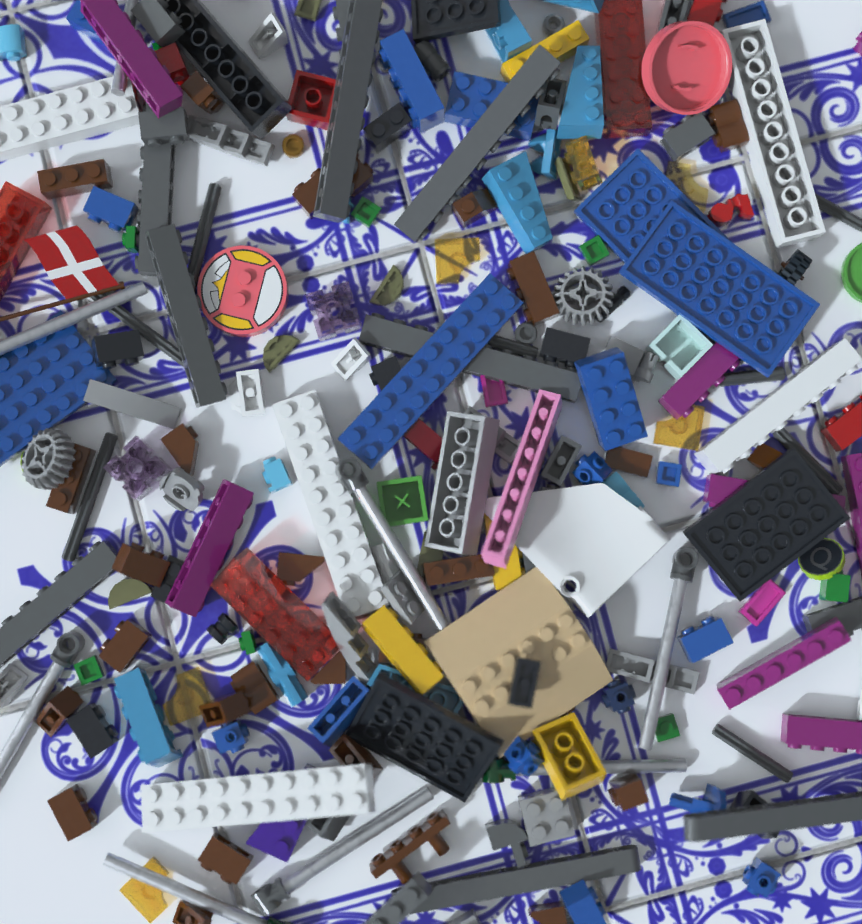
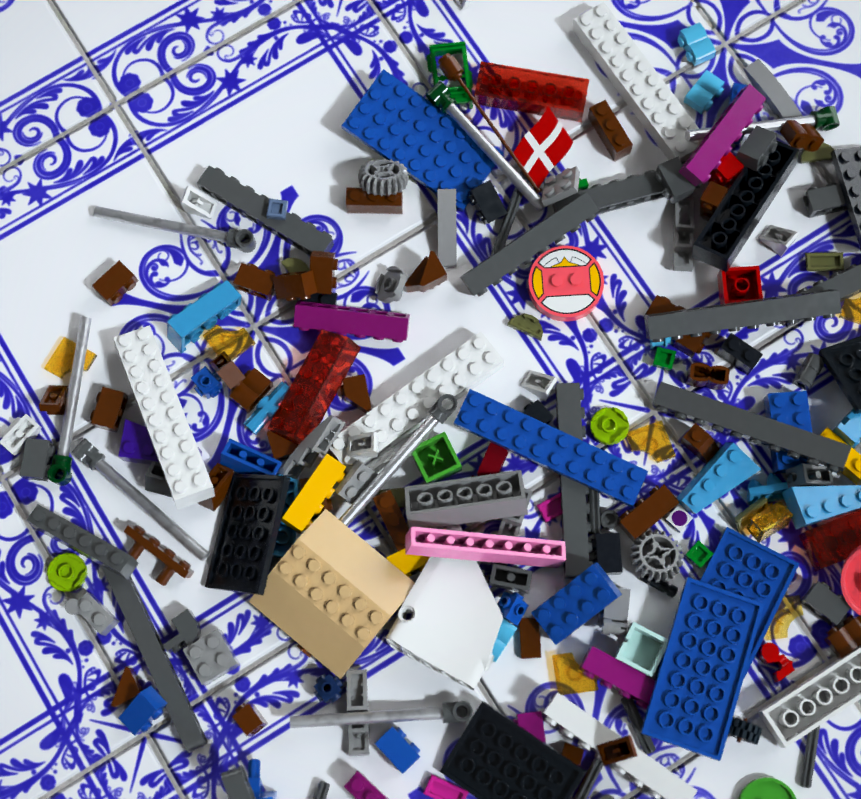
camera: 80 degrees right, 10 degrees down
(45, 595) = (277, 209): none -> sand blue tile
(59, 710) = (191, 248): reddish brown slope -> none
(63, 55) = (704, 91): none -> medium azure brick
(89, 497) = (364, 219): dark grey axle -> none
(89, 670) = (228, 261): green plate -> none
(93, 729) = (183, 278): black brick -> none
(110, 209) = (595, 163): blue brick -> none
(124, 468) = (393, 237): clear purple brick -> none
(127, 258) = (560, 186): none -> light grey plate
(146, 601) = (294, 285): none -> reddish brown brick
(186, 436) = (433, 274): none -> reddish brown slope
(203, 231) = (601, 239): dark grey axle -> none
(222, 628) = (290, 350): black wheel -> none
(247, 393) = (485, 312): white slope -> none
(247, 642) = (285, 373): green plate -> none
(276, 474) = (426, 354): medium azure brick -> none
(293, 146) = (697, 286): pearl gold tile -> none
(341, 299) = (576, 346): clear purple brick -> none
(365, 579) = (363, 445): none -> white slope
(389, 289) = (608, 397): olive tile -> none
(400, 174) = (704, 375): none -> reddish brown brick
(411, 80) = (783, 358): blue brick -> none
(423, 297) = (609, 426): none -> lime tile
(499, 768) = (238, 606): flat silver piece -> none
(523, 682) = (315, 596): black plate -> none
(523, 757) = (254, 620): blue brick -> none
(549, 258) = (679, 518): none -> tile
(568, 756) = (265, 658): yellow brick -> none
(666, 728) = (313, 739): green plate -> none
(668, 474) = (529, 676): blue plate -> none
(783, 406) = (617, 750): none -> reddish brown slope

